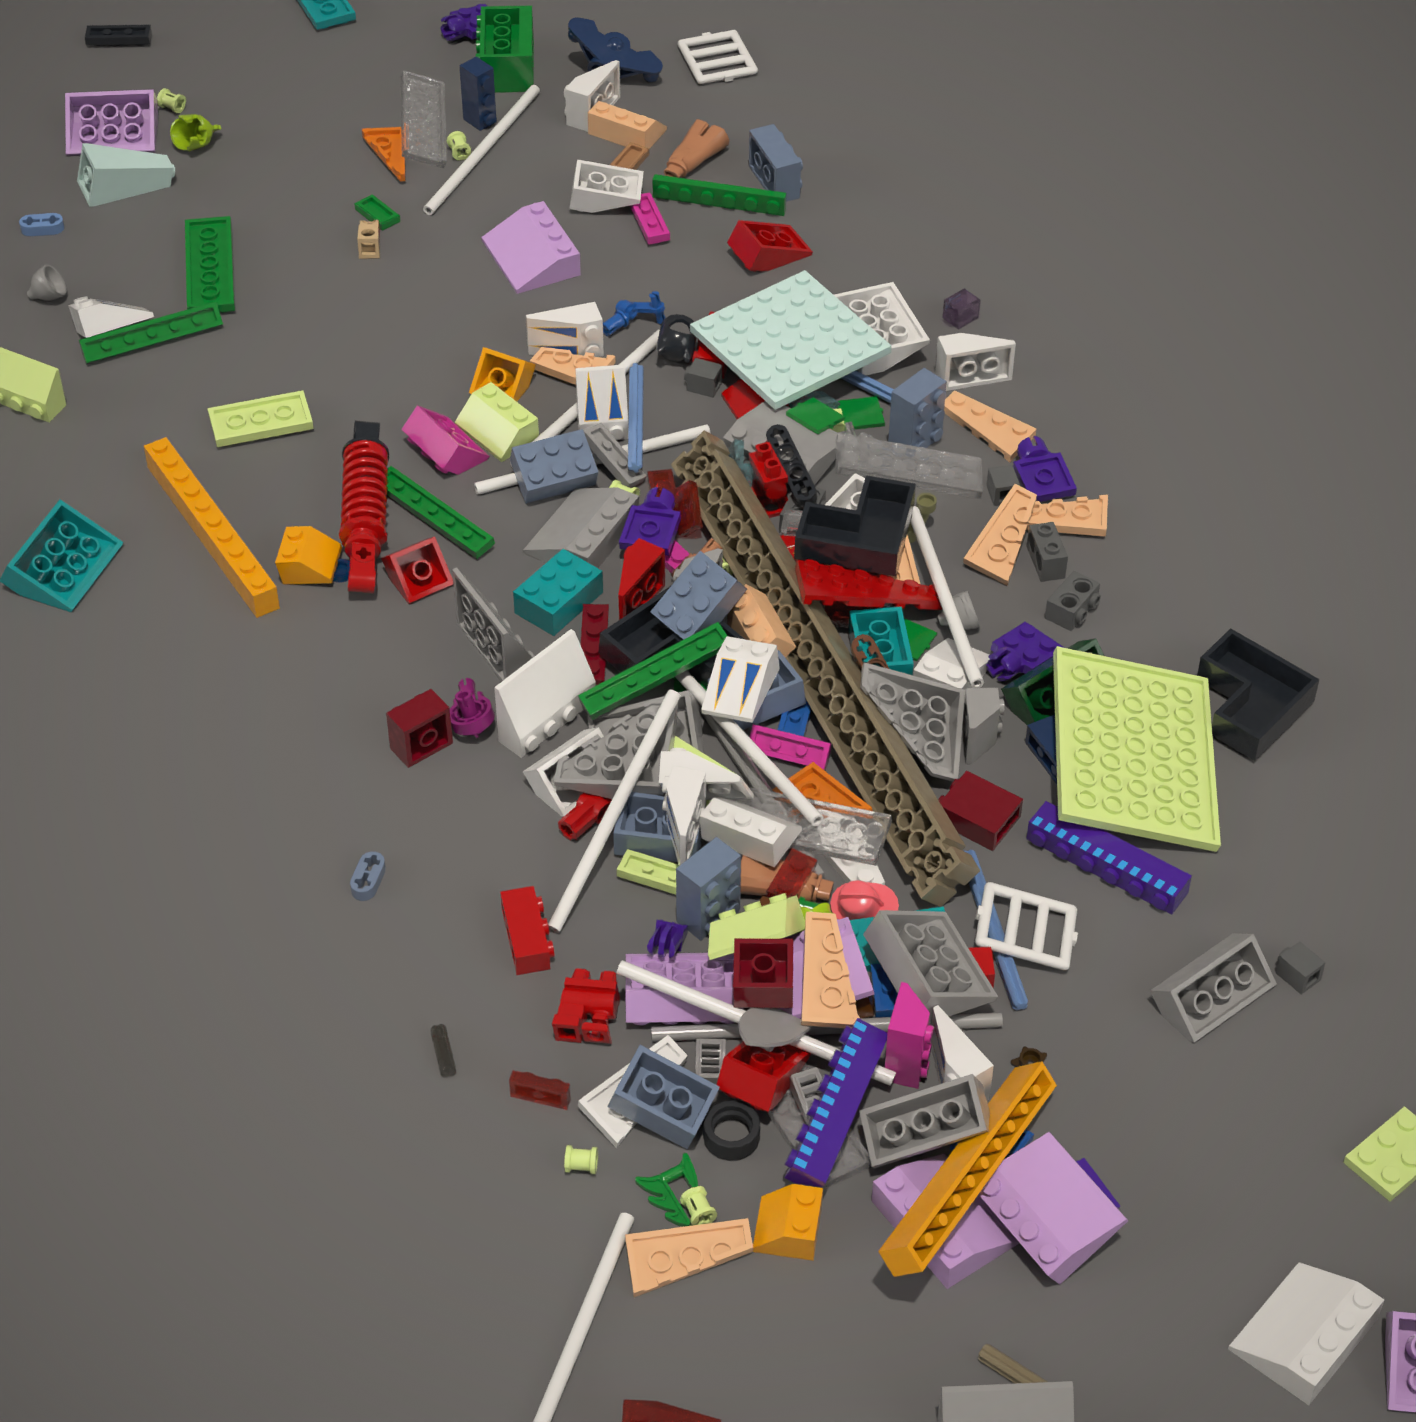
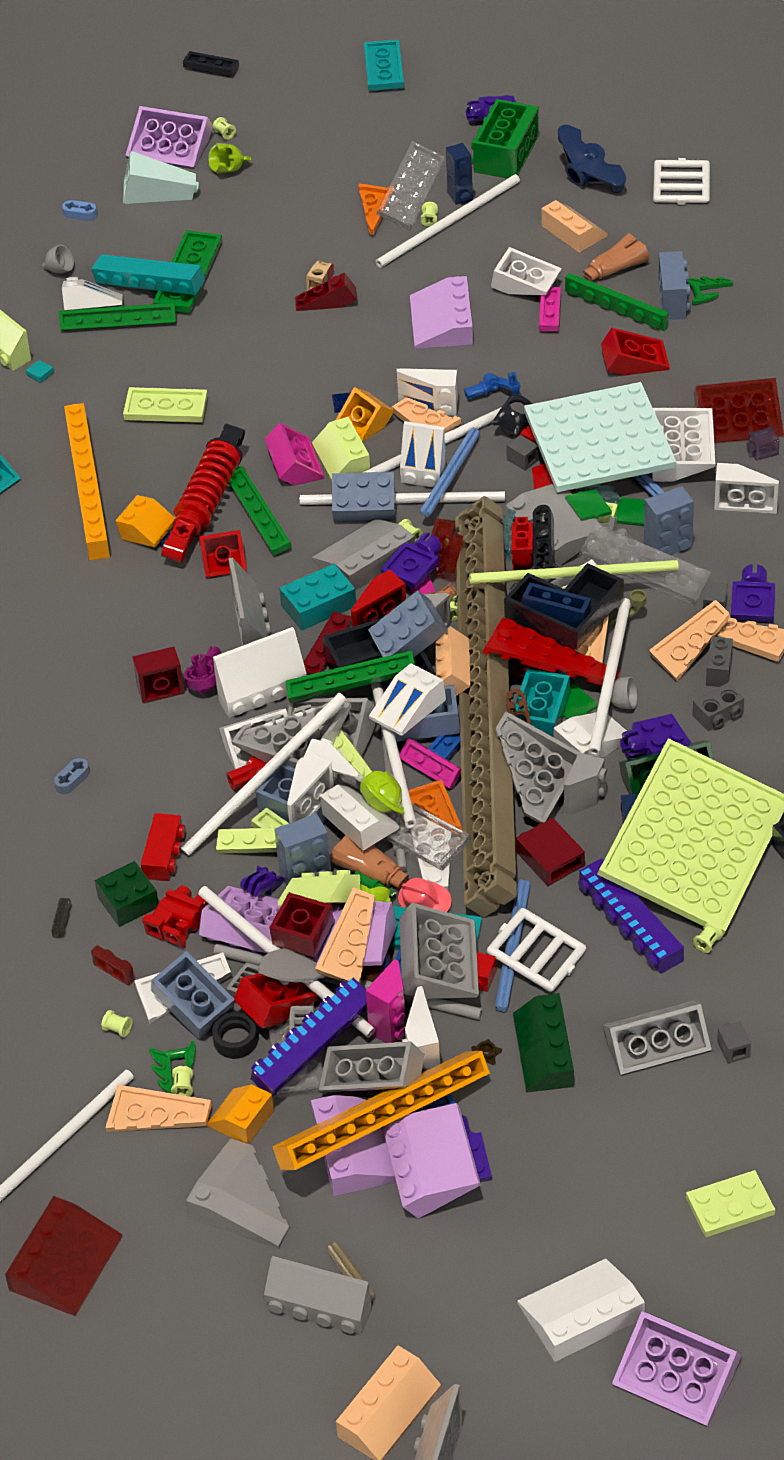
camera: 25 degrees right, 0 degrees up
(85, 415) = (39, 371): none -> teal tile
(167, 276) = (148, 274): none -> teal brick
(375, 209) = (338, 256): green tile -> none
(391, 255) = (328, 295): none -> dark red slope
(465, 369) = (339, 401): none -> clear blue tile
(513, 998) = (126, 893): none -> dark green brick
(589, 88) = (564, 187): white slope -> none
(612, 455) = (413, 498): light grey plate -> none
(628, 893) = (246, 840): none -> yellowish green plate
(631, 156) = (562, 254): medium nougat tile -> none
(770, 792) = (382, 791): none -> lime helmet
(792, 875) = (373, 862): clear red plate -> none
(809, 155) = (707, 283): none -> green piece
(839, 1329) = (237, 1196): none -> light grey slope
(843, 491) = (569, 572): none -> yellowish green piece
(862, 528) = (557, 603): none -> dark blue brick
(921, 273) = (741, 408): none -> clear red slope
(995, 427) = (734, 545): light nougat wing -> none
(1095, 1032) = (544, 1044): none -> dark green slope
(1204, 859) = (707, 937): none -> yellowish green bush

